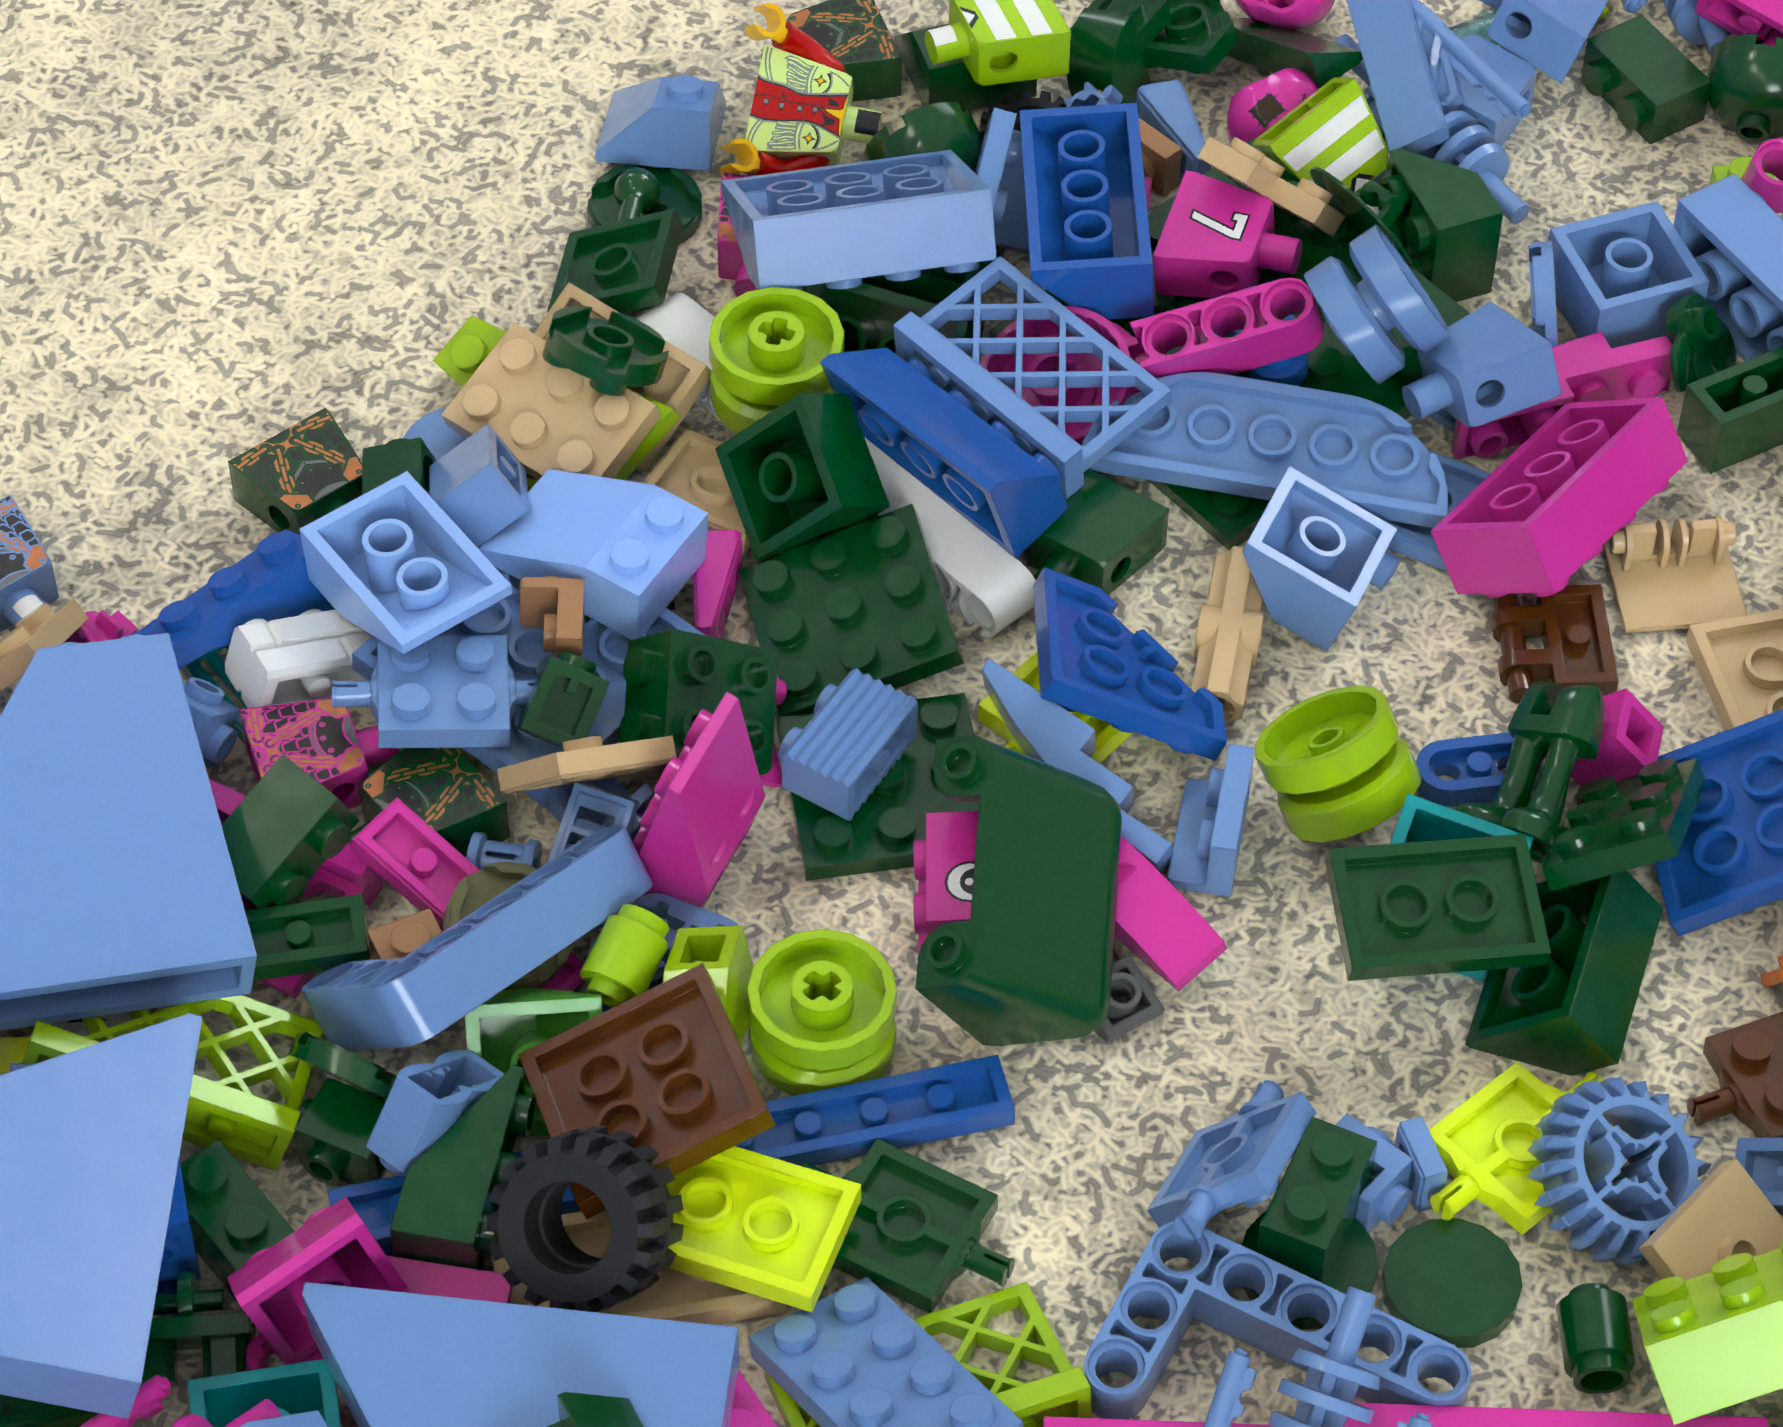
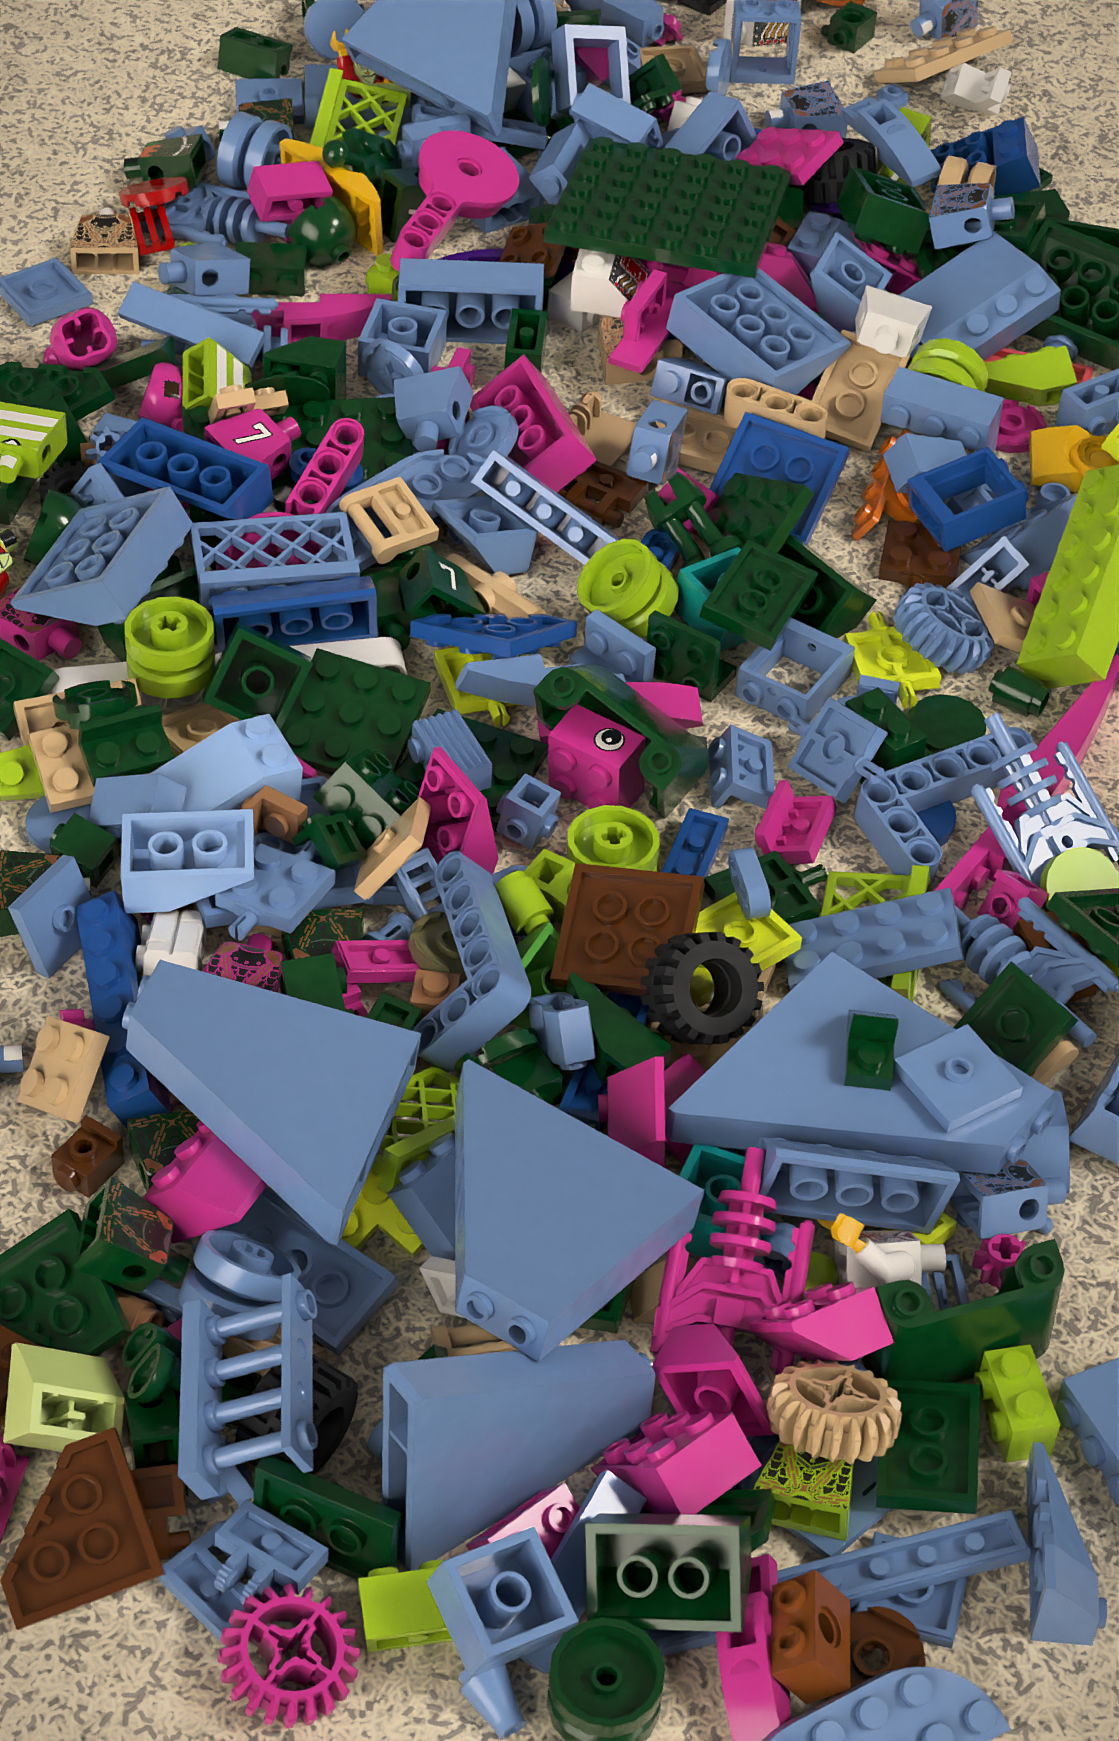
camera: 60 degrees left, 5 degrees down
(250, 501) = (48, 915): none -> medium blue plate
(560, 416) = (124, 743): none -> dark green bracket
(828, 881) = (528, 812): none -> medium blue brick
(840, 1179) = (749, 883): none -> medium blue beam
(1068, 1189) = (794, 824): none -> dark pink bracket
(1139, 1081) = (741, 768): none -> medium blue bracket
(1154, 567) = (436, 587): none -> dark green torso
(1227, 449) = (399, 513): none -> tan plate
(1269, 1364) = (939, 821): none -> blue tile
(1290, 913) = (687, 656): none -> dark green bracket
(1328, 994) = (830, 658): none -> medium blue window
(1369, 309) = (379, 402): medium blue wheel -> none
(1402, 592) = (541, 507): none -> medium blue brick
(1492, 455) = (487, 431): none -> medium blue tile
(1578, 170) = (332, 318): none -> dark pink slope
(1671, 643) = (655, 449): none -> medium blue torso
(1698, 341) = (463, 335): dark green plate -> none

